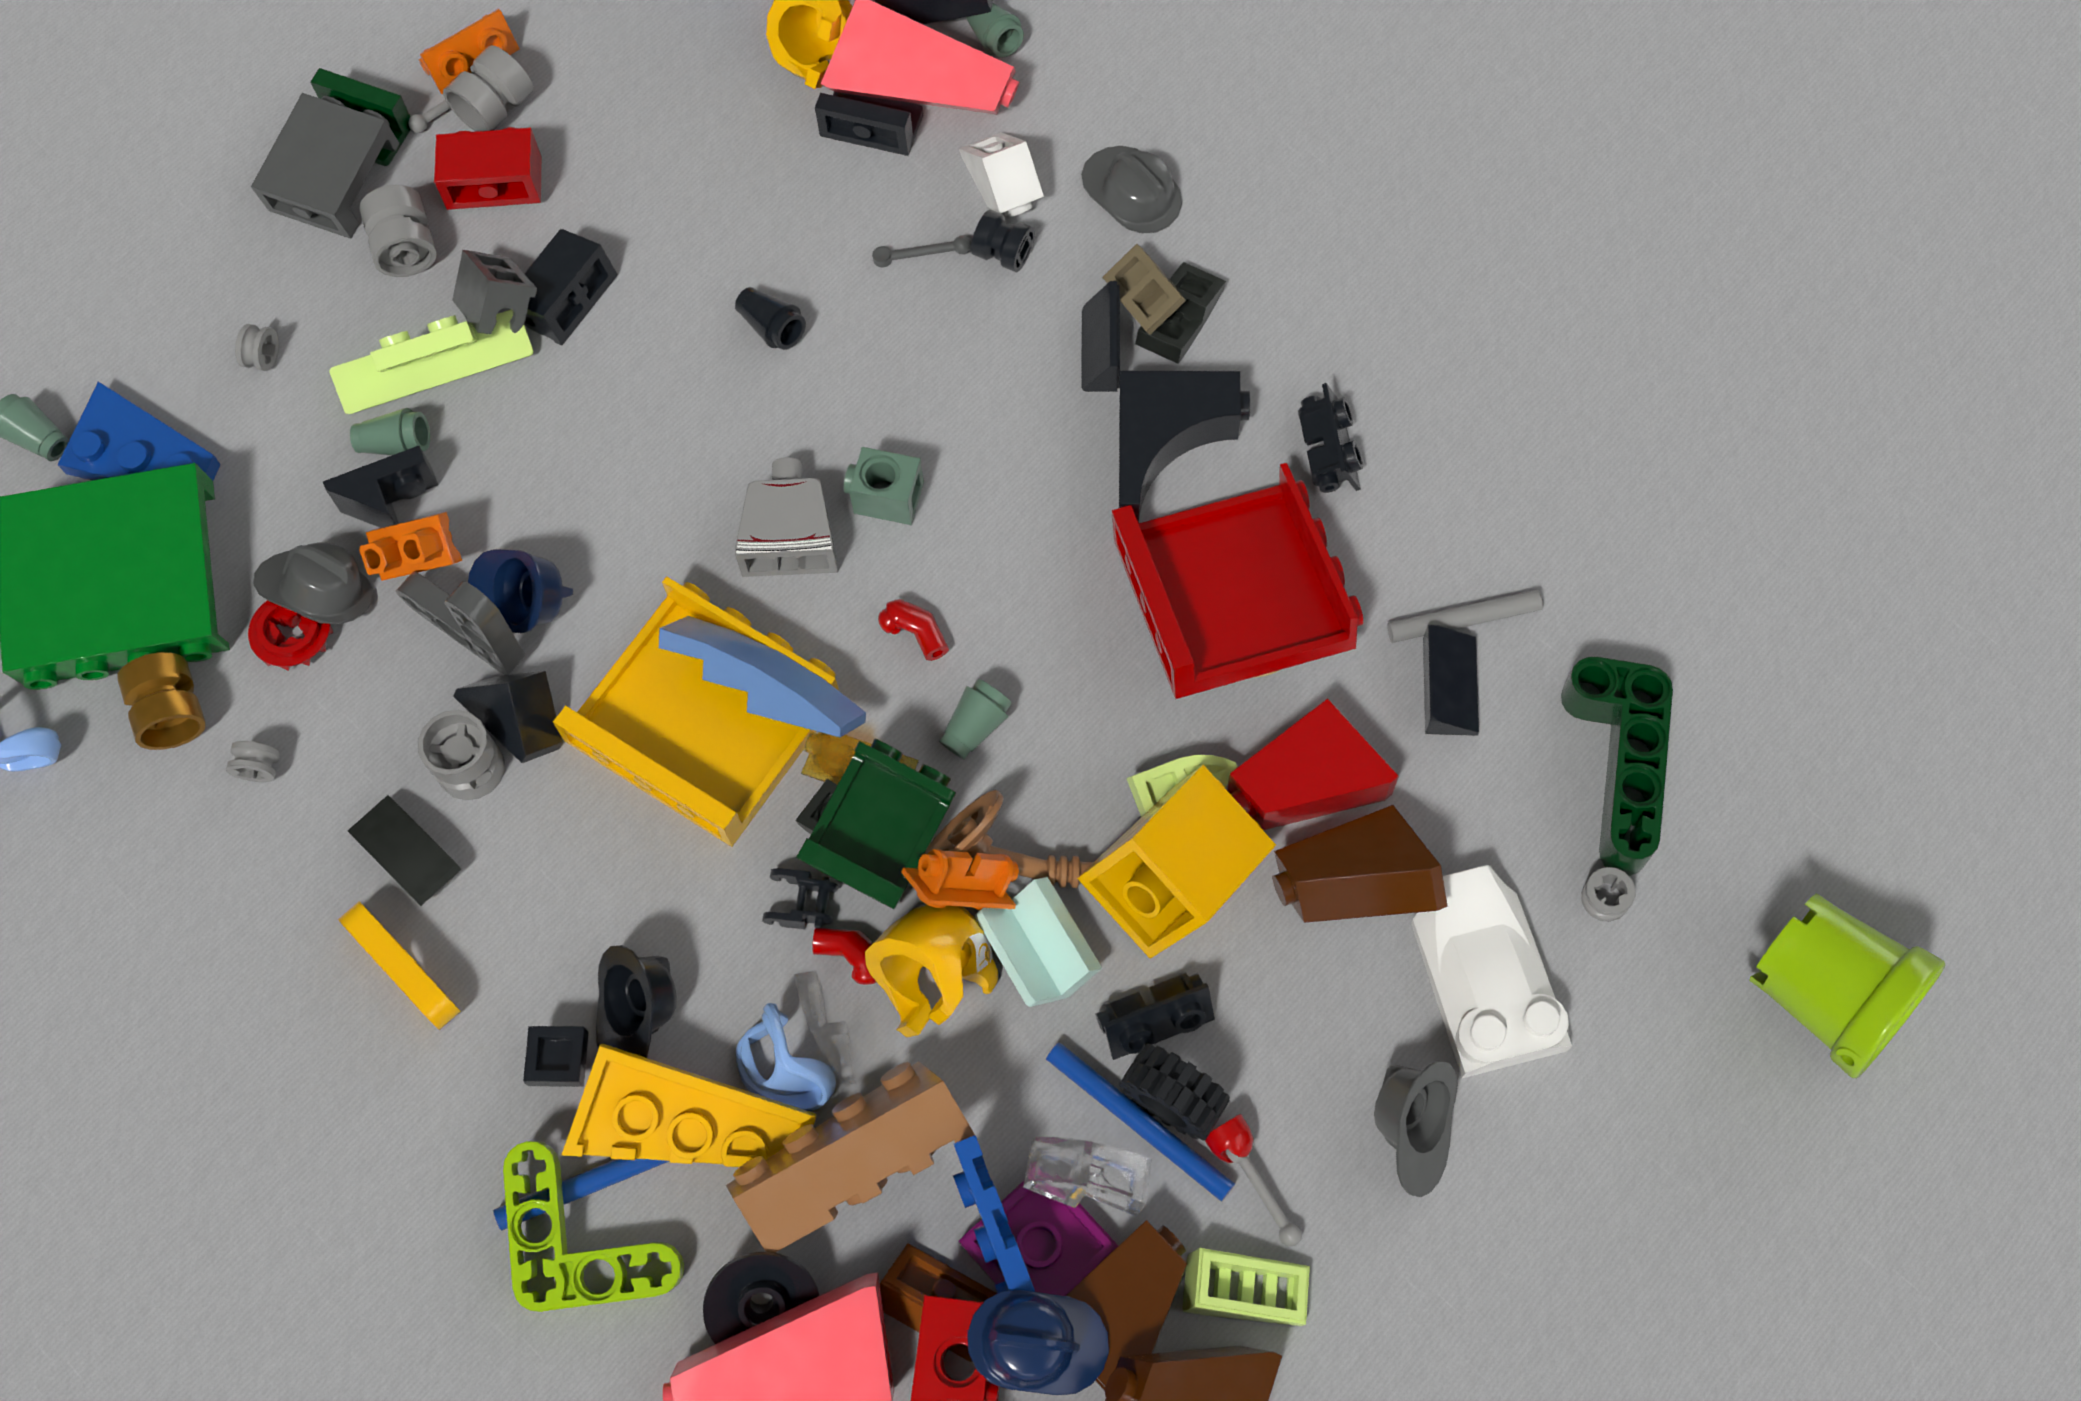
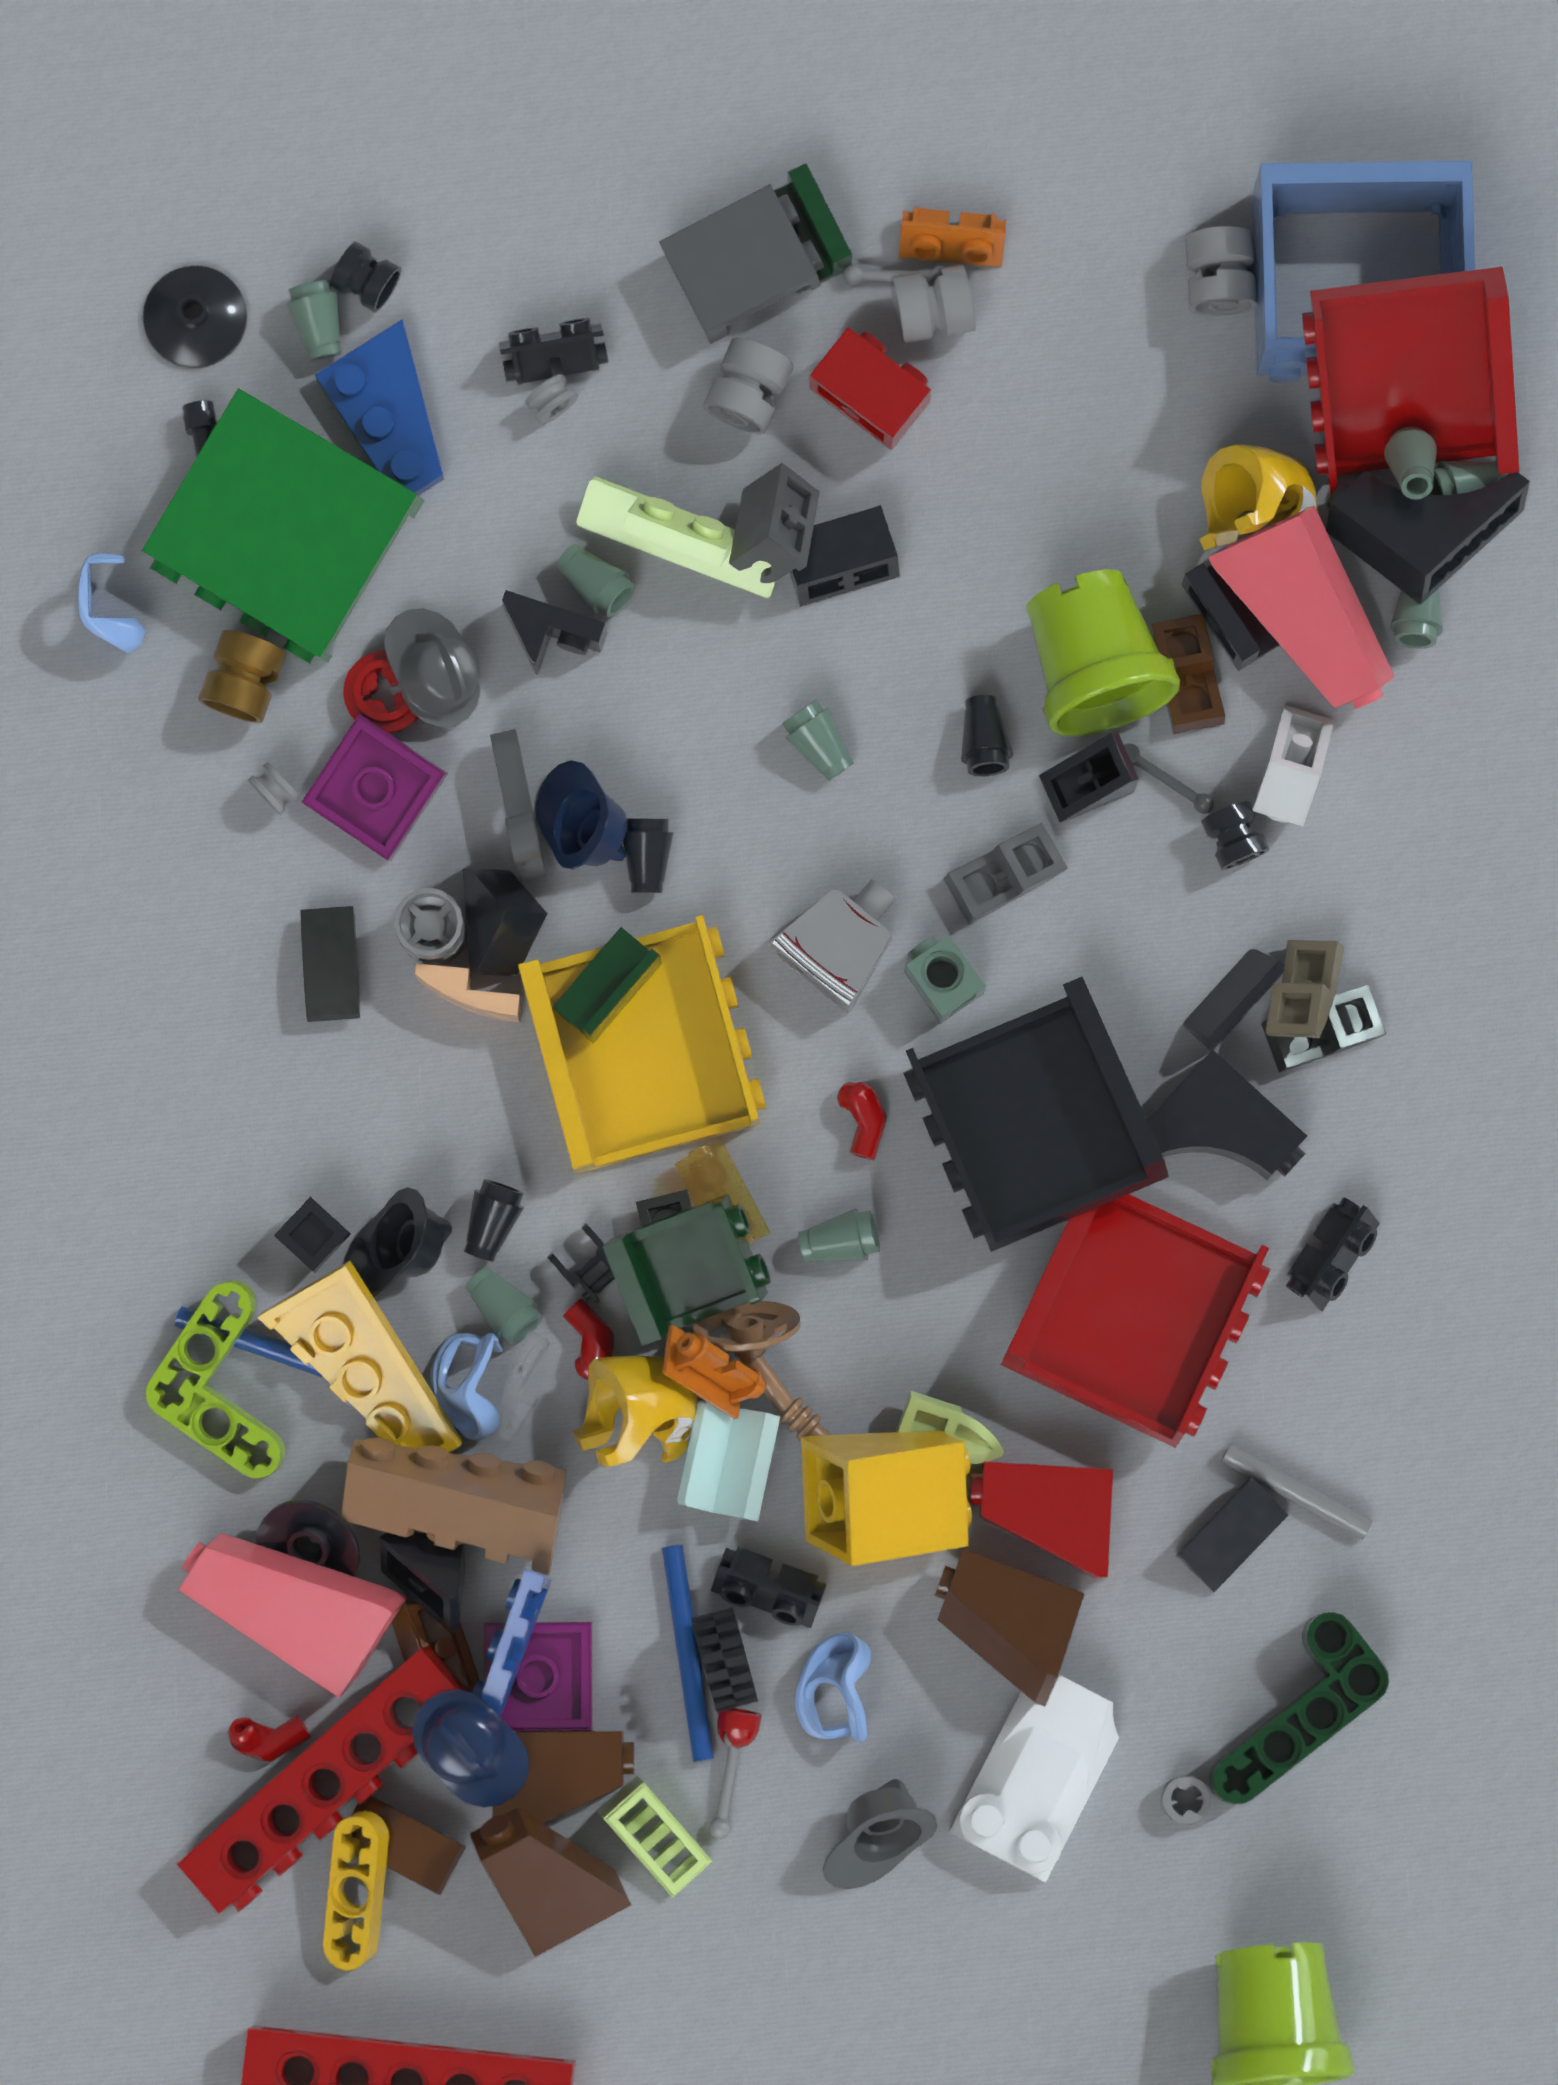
camera: 40 degrees right, 15 degrees up
(41, 375) = (363, 275): none -> black wheel
(242, 302) = (533, 351): none -> black hinge
(335, 699) = (374, 787): none -> magenta tile
(399, 965) = (256, 1057): yellow beam -> none
(410, 547) = (530, 707): orange hips -> none
(514, 787) = (455, 987): none -> light nougat slope
(589, 578) = (647, 853): none -> black cone
(637, 685) = (607, 984): none -> dark green panel
(650, 409) = (818, 739): none -> sand green cone
(693, 926) = (492, 1218): none -> black cone
(758, 982) = (503, 1306): none -> sand green cone
(774, 682) = (709, 1080): medium blue slope -> none
(803, 196) = (1097, 656): none -> lime piece
(866, 391) = (1005, 873): none -> dark grey slope
(870, 278) = (1090, 778): none -> black slope
(872, 178) = (1198, 699): none -> reddish brown slope
(875, 1239) = (426, 1574): none -> black slope
(1044, 510) = (1036, 1119): none -> black panel
(1079, 1168) = (613, 1653): clear slope -> none
(1133, 188) = (1395, 872): dark grey piece -> none
(1260, 1017) = (839, 1662): none -> light blue piece

